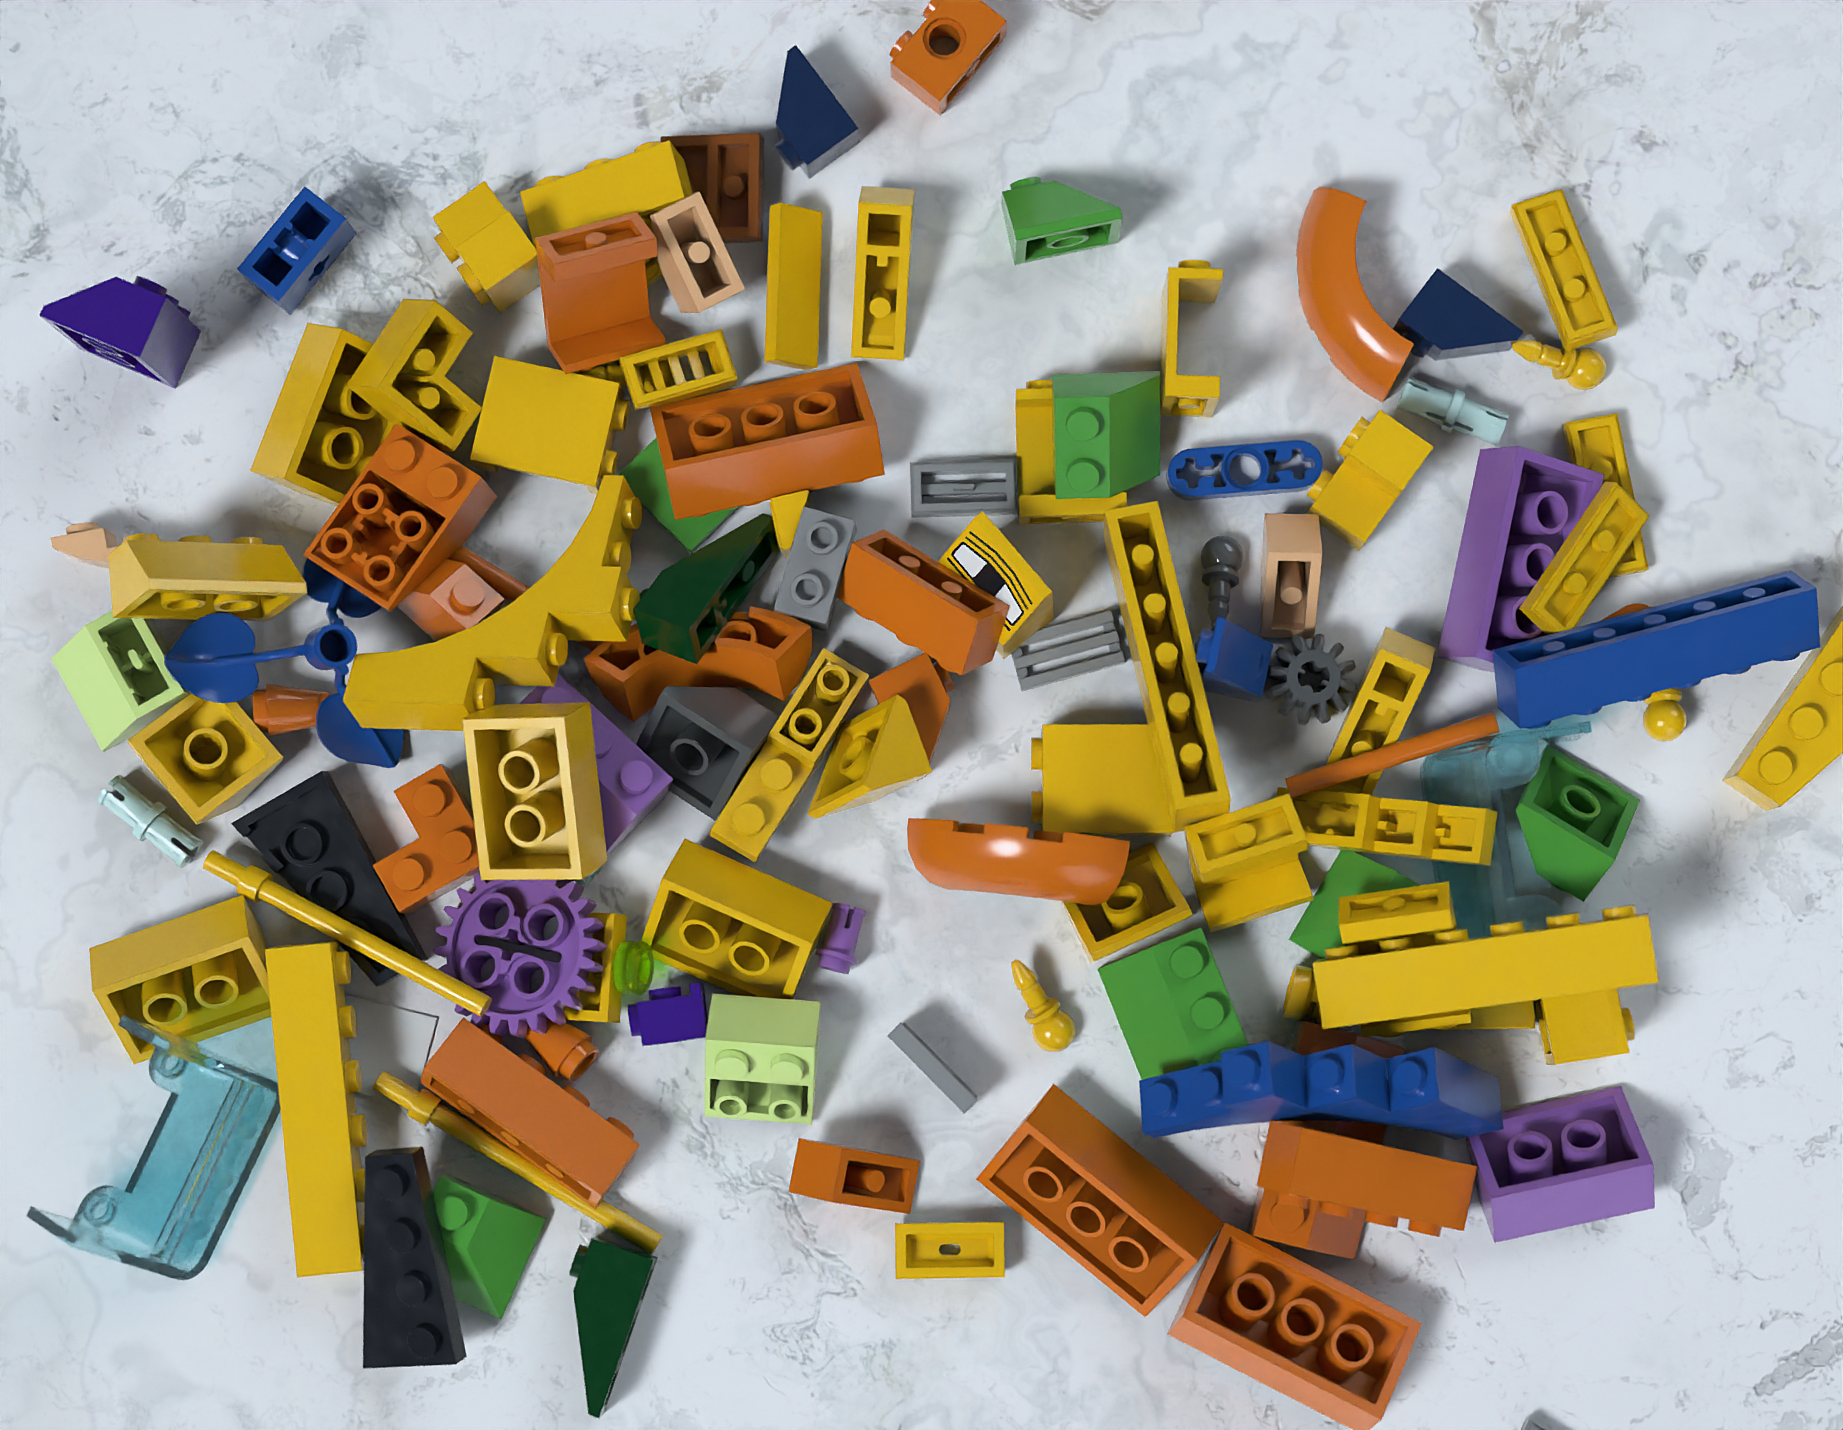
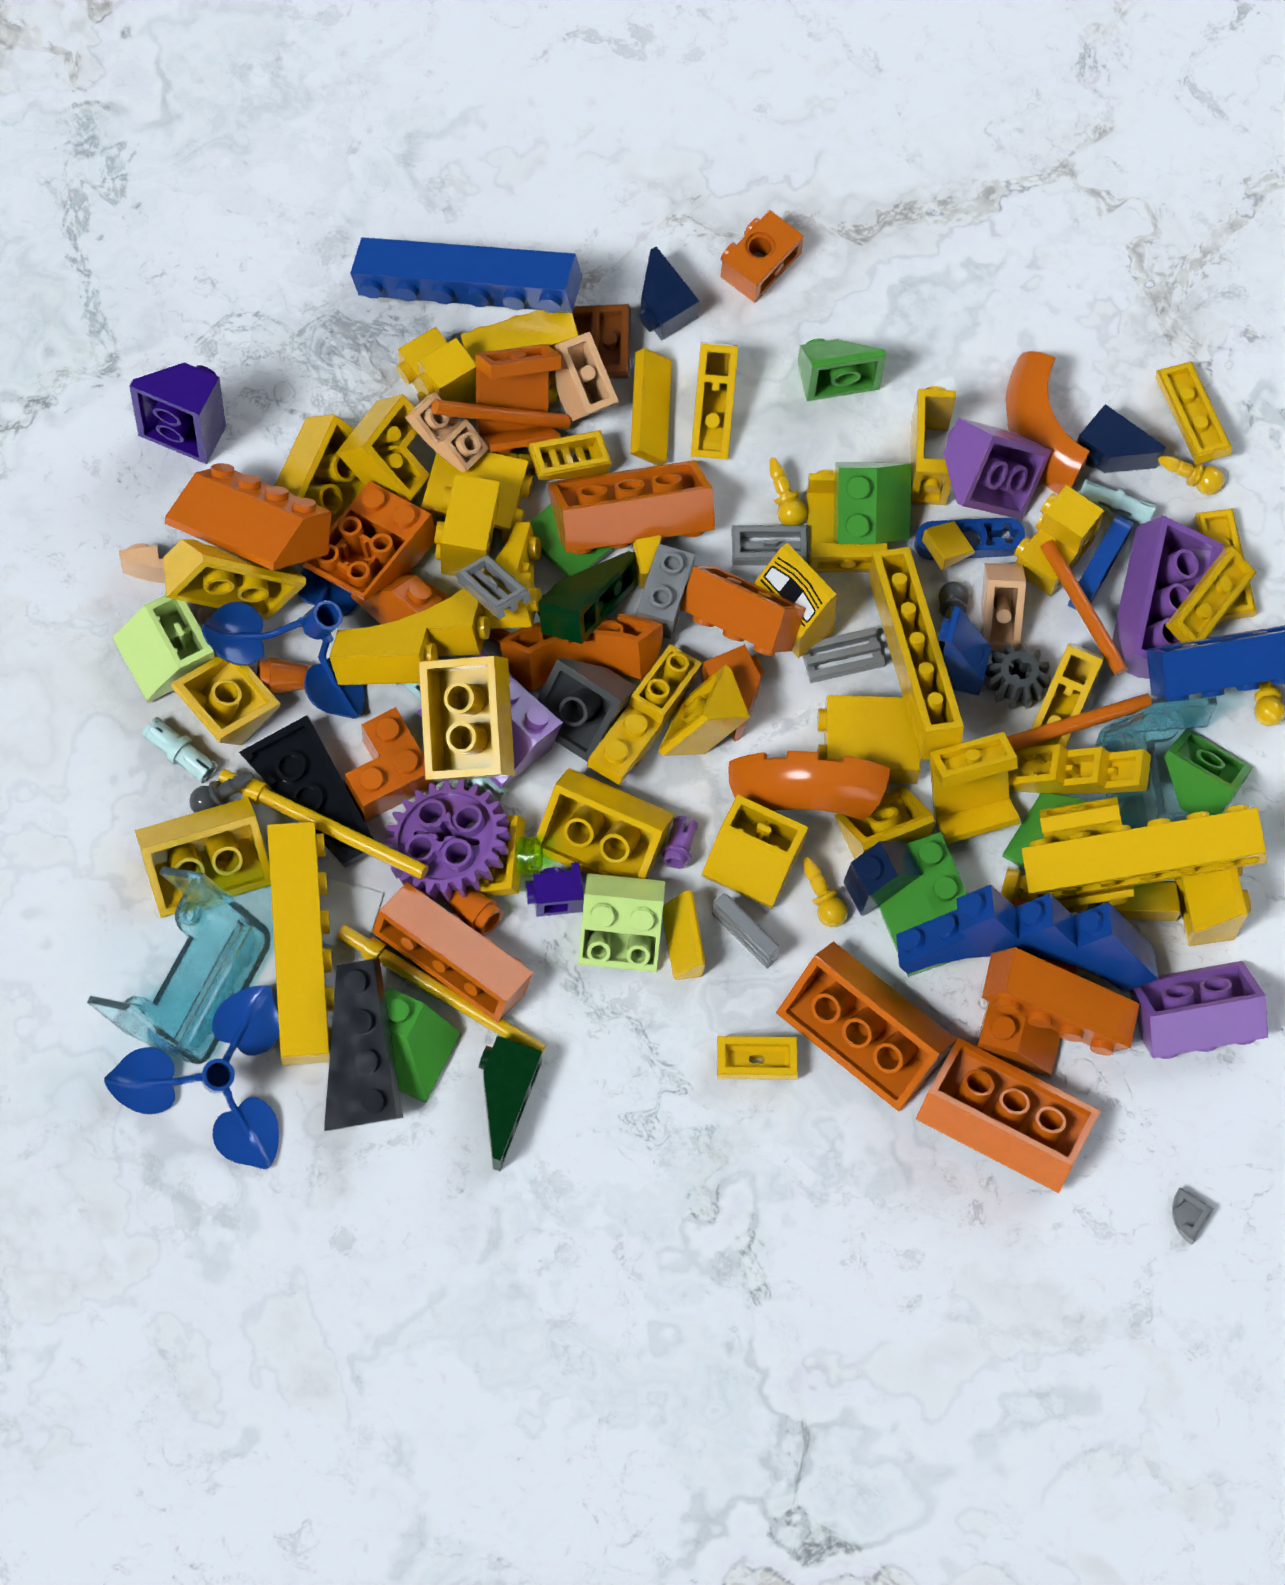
camera: 10 degrees left, 15 degrees down
(201, 888) = (218, 793): none -> dark grey bar
(226, 497) = (251, 518): none -> orange slope
(254, 1373) = (246, 1132): none -> blue plant
(297, 250) = (300, 369): blue brick -> none
(501, 352) = (451, 439): none -> light nougat slope
(526, 103) = (466, 275): none -> blue brick
(535, 487) = (468, 522): none -> yellow brick
(577, 317) = (500, 414): none -> orange bar
(587, 620) = (496, 607): none -> light grey tile
(847, 1076) = (683, 937): none -> yellow slope
(853, 1176) = (687, 1003): orange slope -> none
(943, 956) = (755, 851): none -> yellow slope
(993, 434) = (790, 509): none -> yellow bar
(1121, 989) = (880, 874): none -> dark blue slope
(1212, 487) = (947, 544): none -> yellow slope
(1276, 378) = (993, 468): none -> medium lavender slope
(1404, 583) = (1084, 607): none -> orange bar
(1429, 506) = (1104, 557): none -> blue beam

